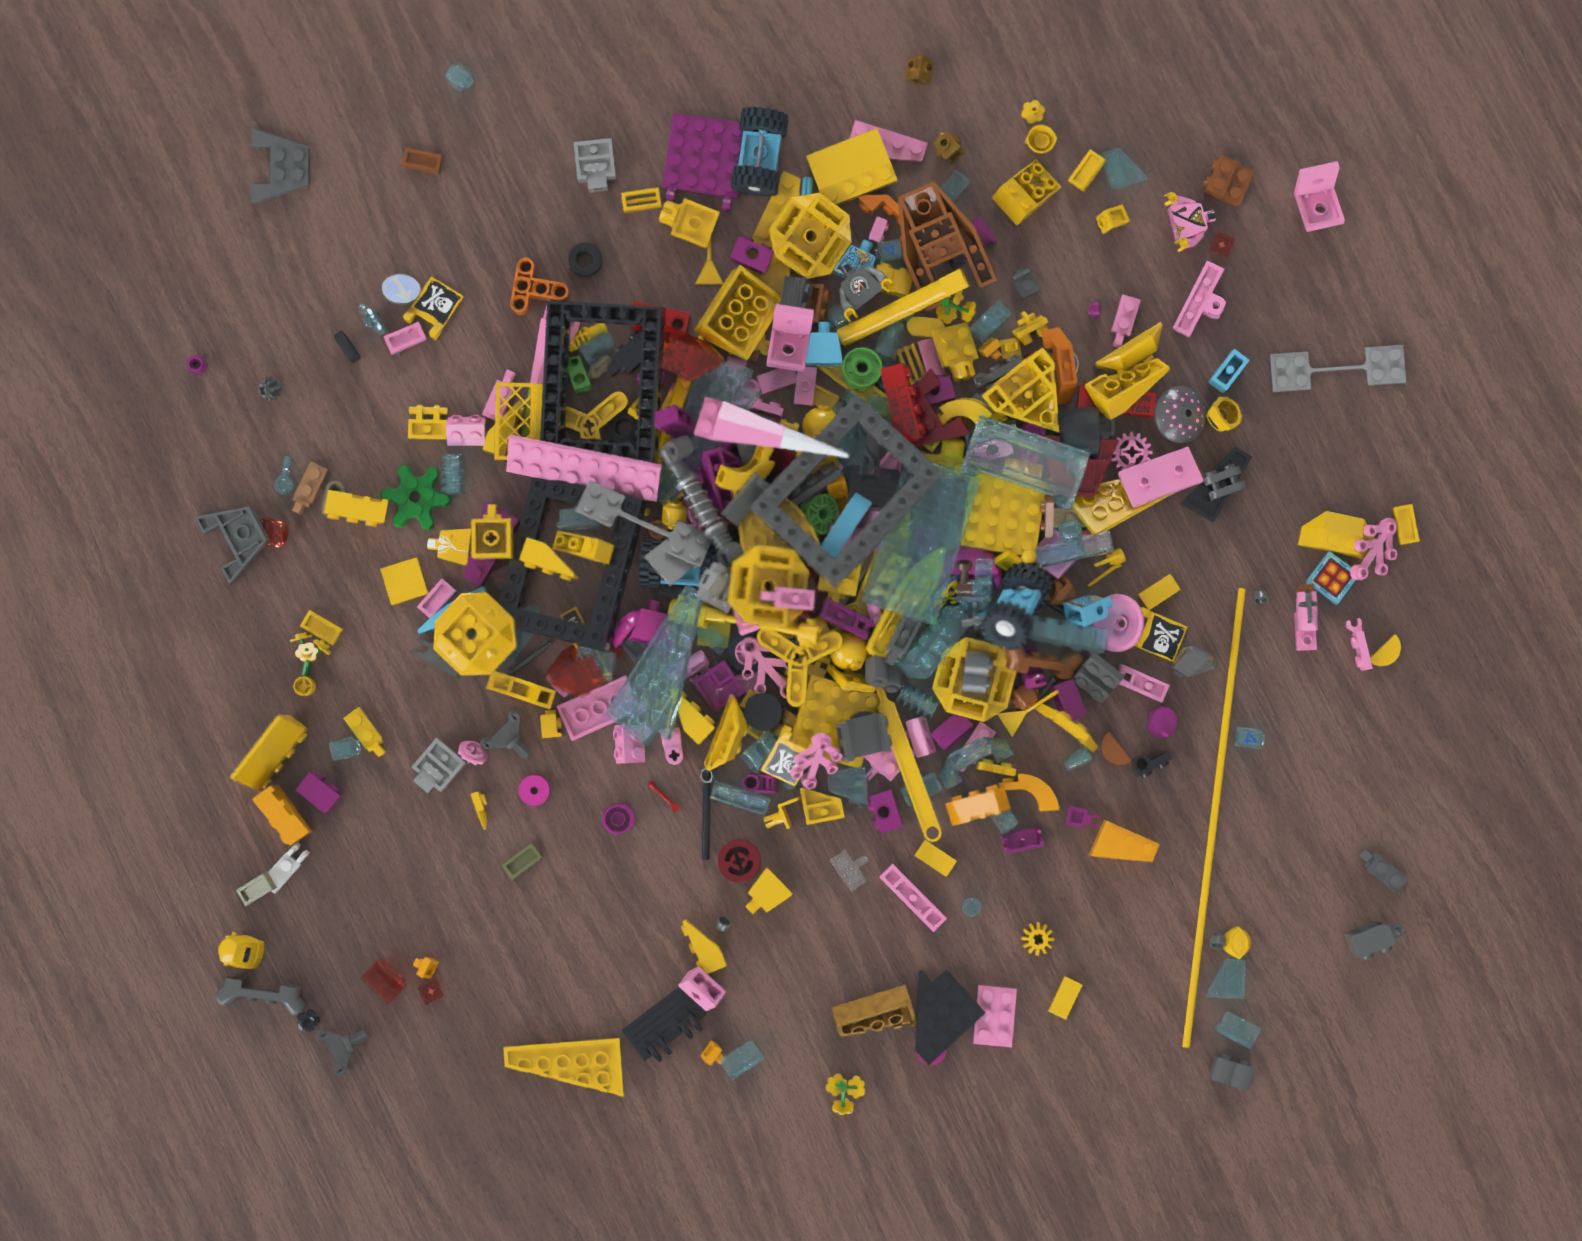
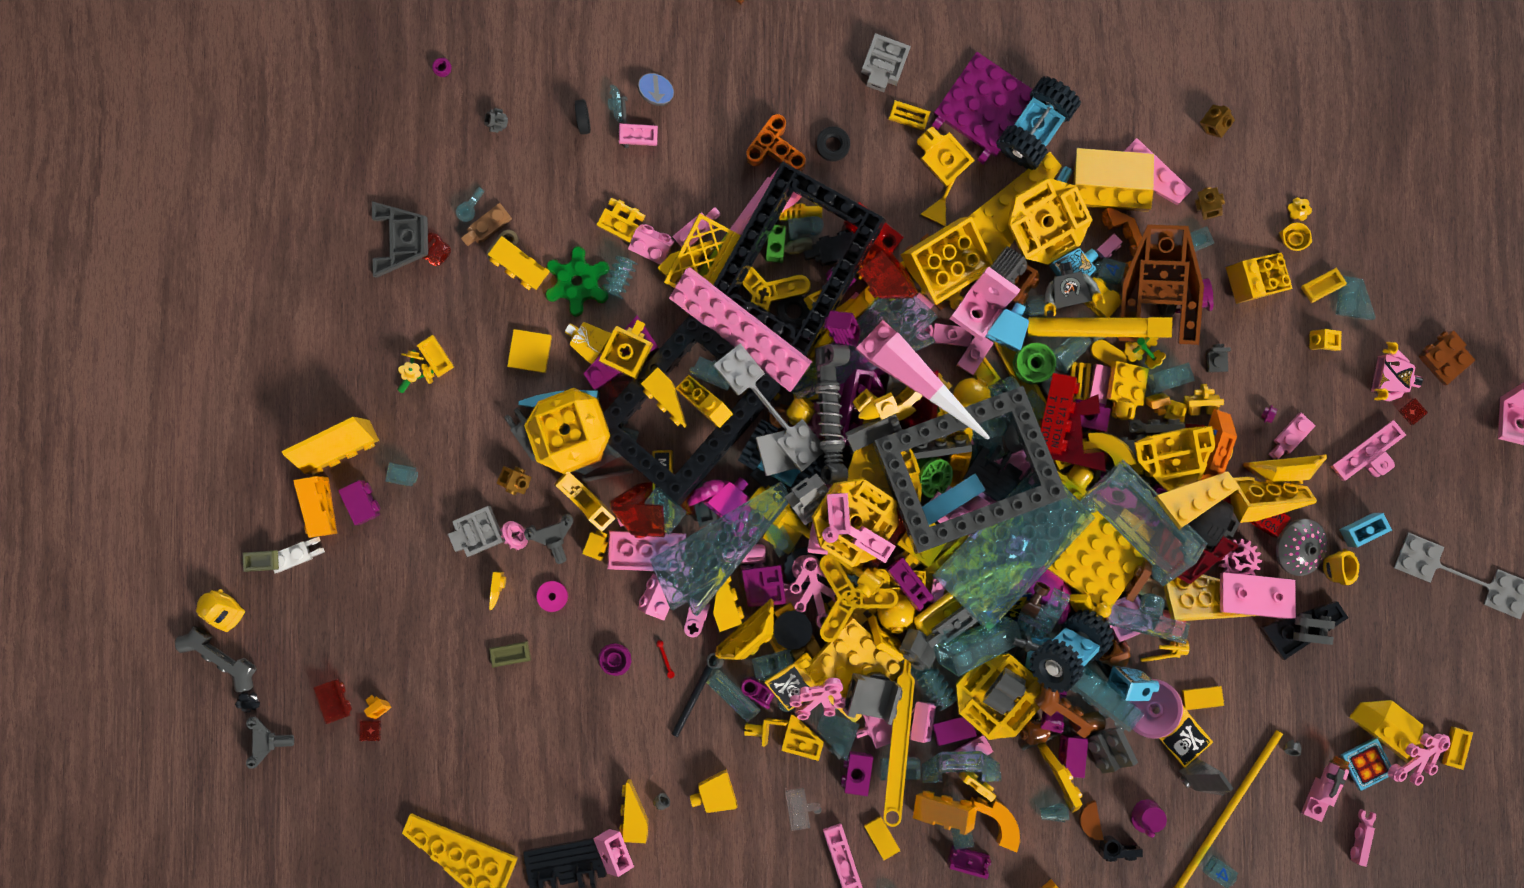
camera: 25 degrees right, 0 degrees up
(300, 686) = (390, 399): yellow wheel -> none
(365, 731) = (428, 468): yellow hinge -> none
(435, 305) = (678, 118): flag -> none
(437, 598) = (551, 380): bright pink tile -> none
(448, 703) = (514, 480): none -> pearl gold brick
(724, 865) = (689, 750): dark red wheel -> none
(741, 476) = (881, 407): none -> yellow plate
(750, 589) = (838, 517): none -> bright pink hinge
(760, 263) = (987, 224): magenta brick -> none
(770, 409) = (934, 360): bright pink plate -> none
(1013, 719) = (1014, 747): yellow piece -> none
(1056, 422) = (1194, 499): none -> yellow wing
(1078, 817) = (1031, 866): magenta plate -> none
(1143, 684) = (1149, 775): bright pink plate -> none
(1387, 652) = (1385, 856): yellow tile -> none

